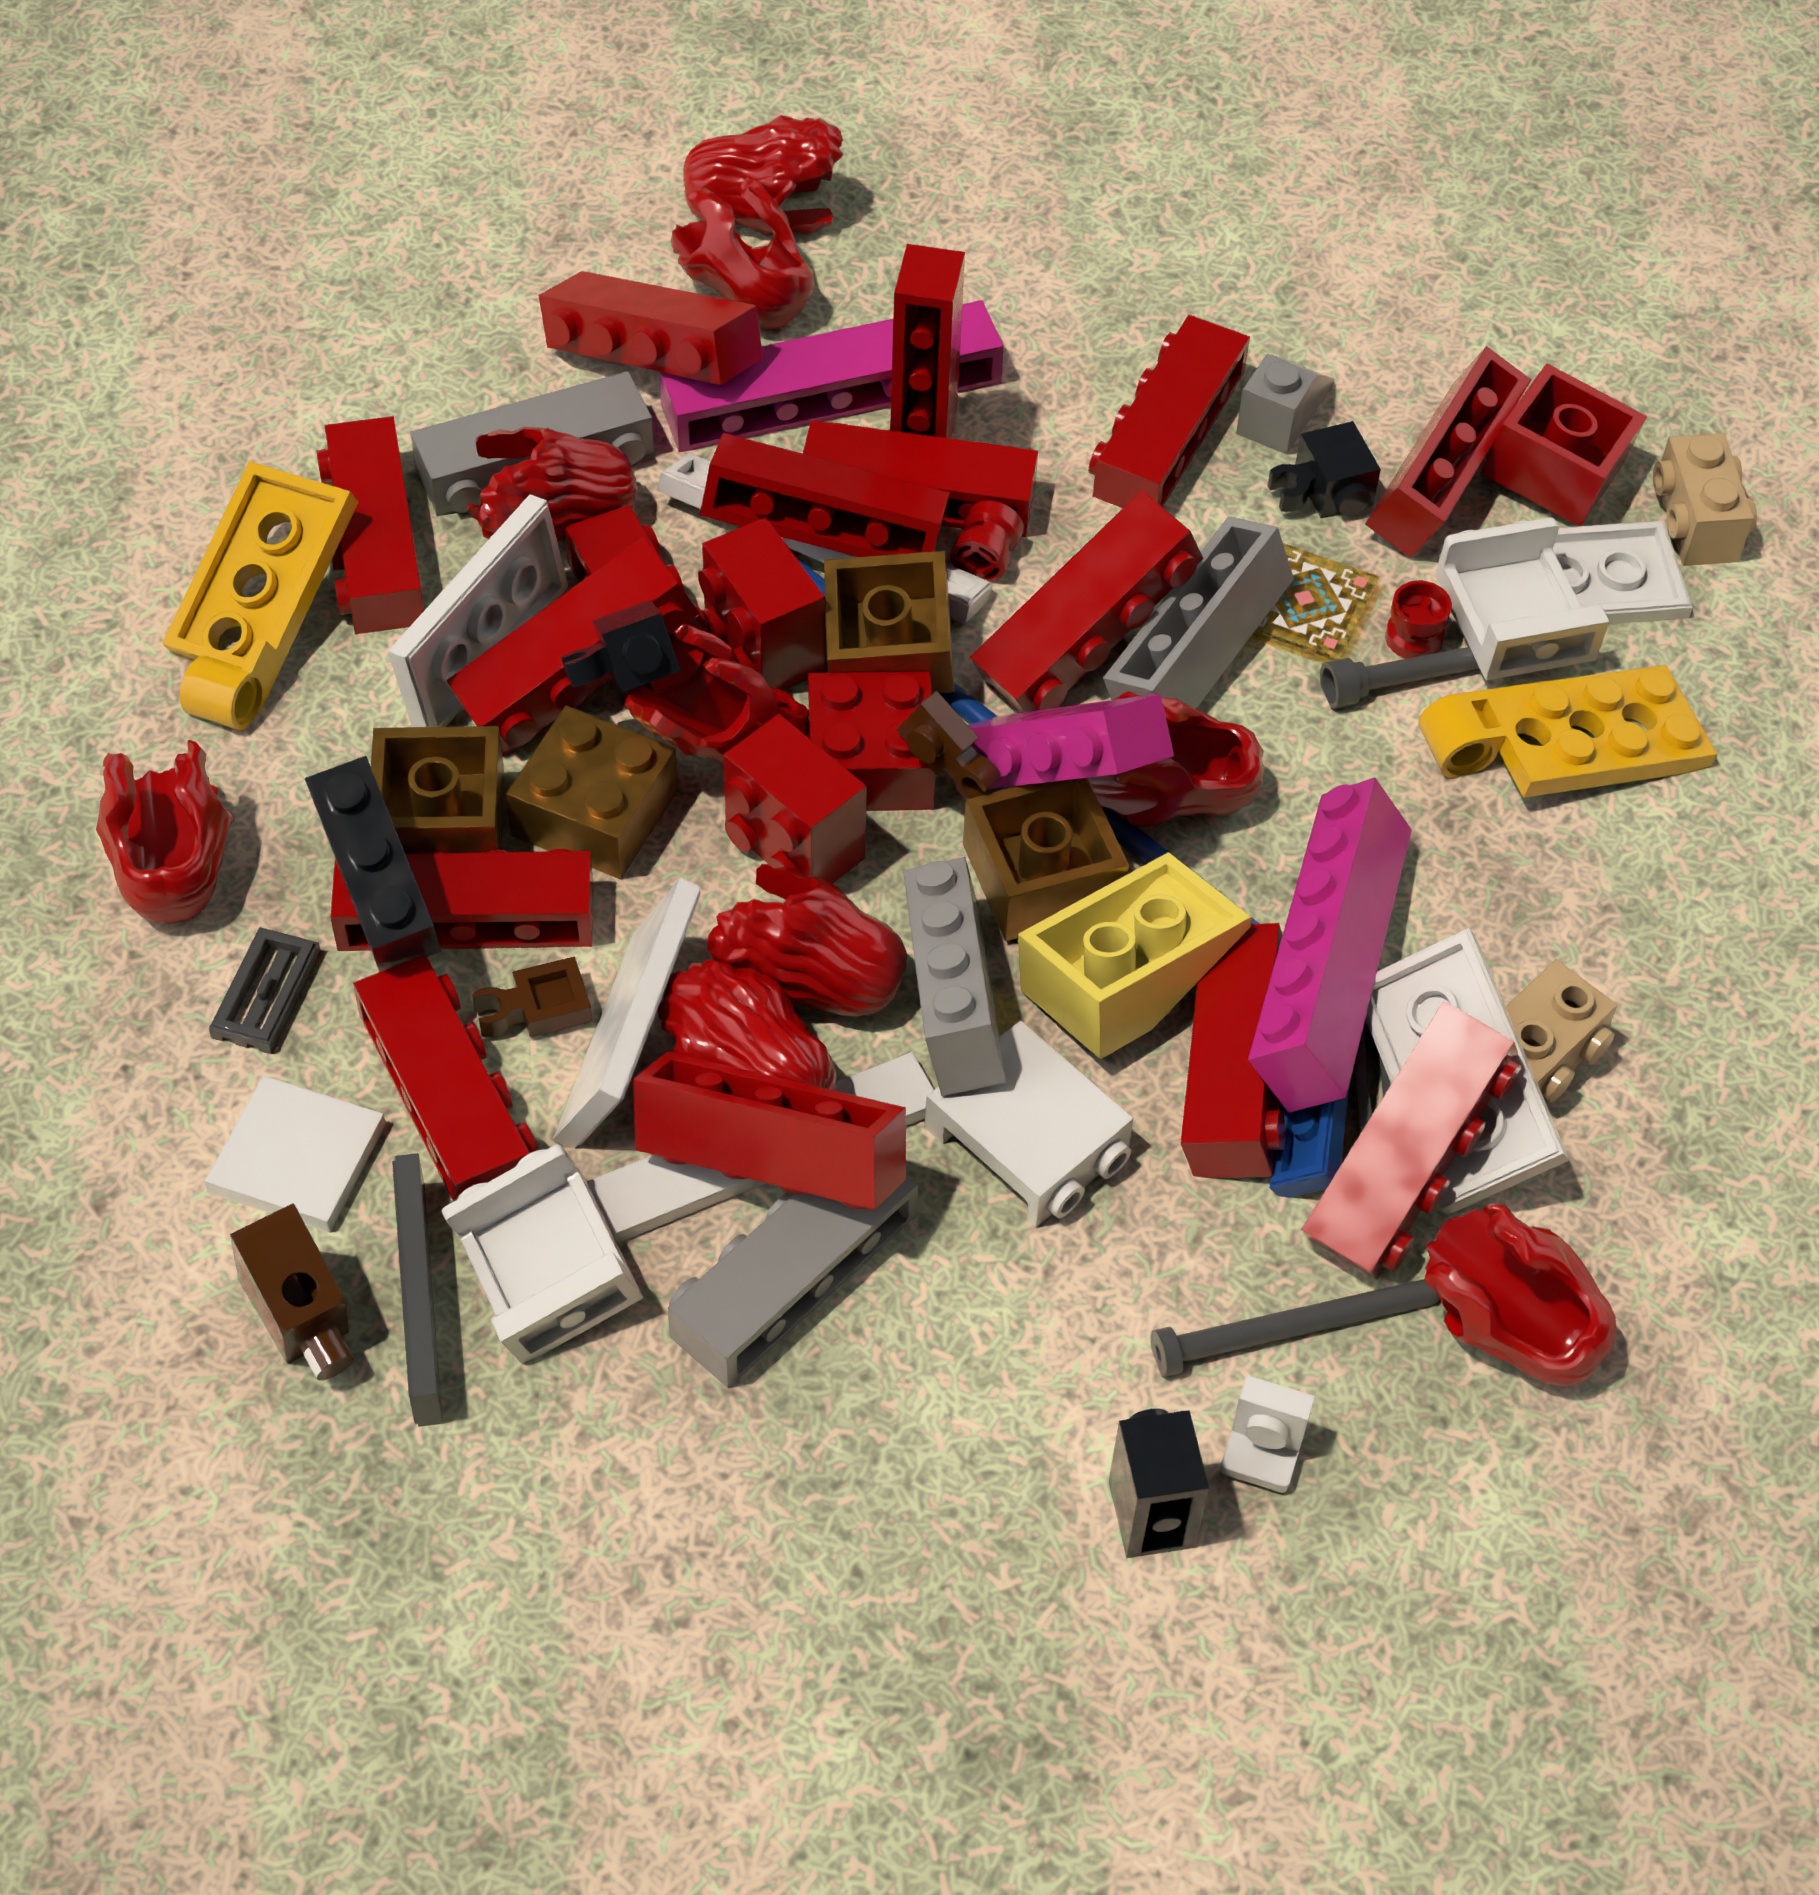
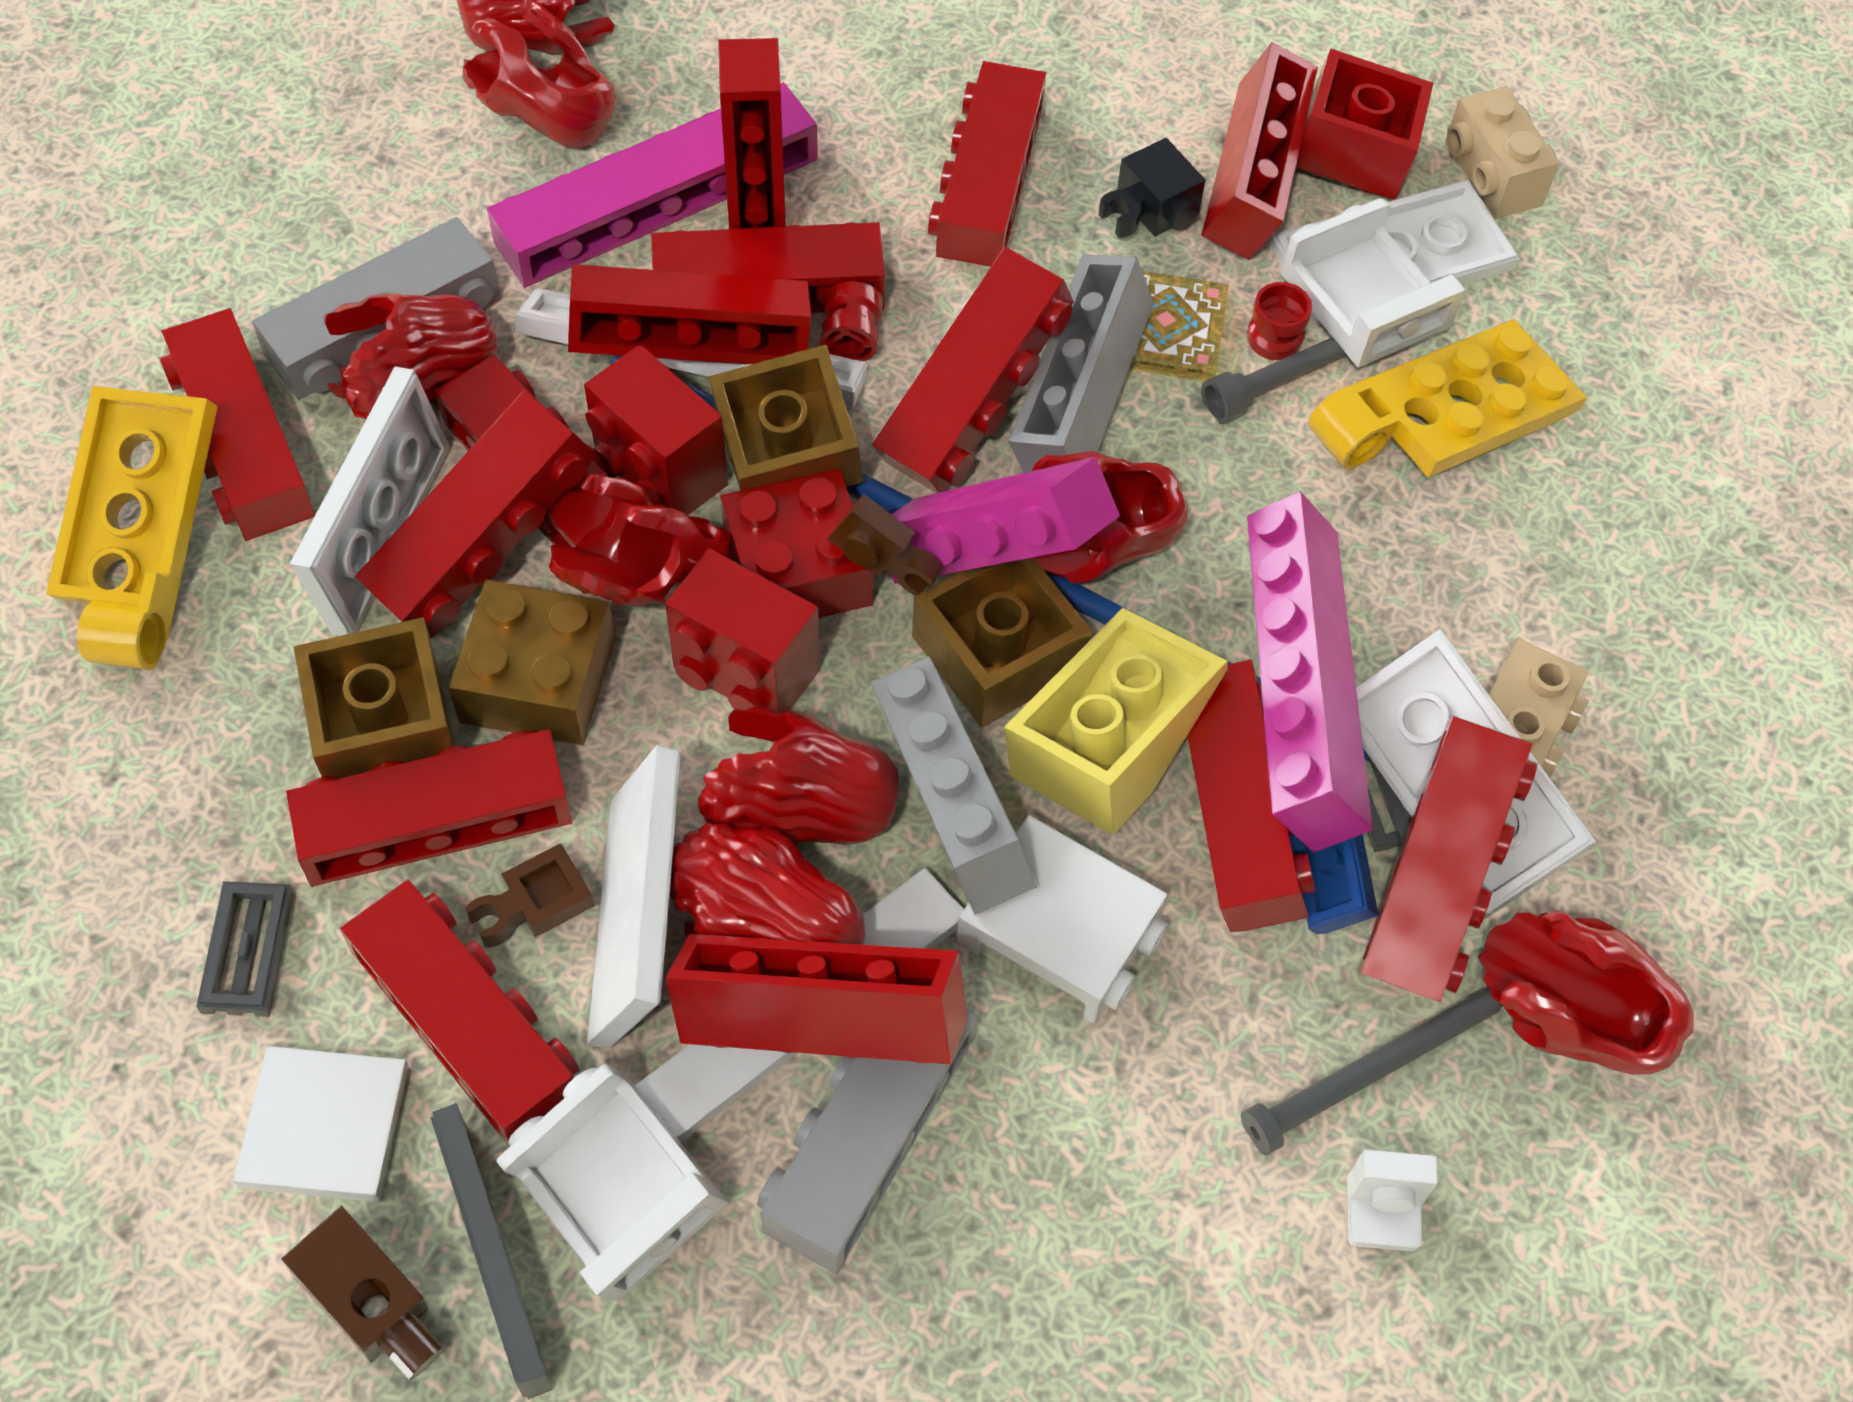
camera: 15 degrees left, 5 degrees up
(163, 835) = (97, 806): red hair -> none
(373, 863) = (330, 799): black brick -> none
(631, 648) = (541, 509): black brick -> none
(651, 327) = (469, 167): red brick -> none
(1158, 1482) = (1306, 1283): black brick -> none
(1280, 402) = (1088, 132): light grey slope -> none

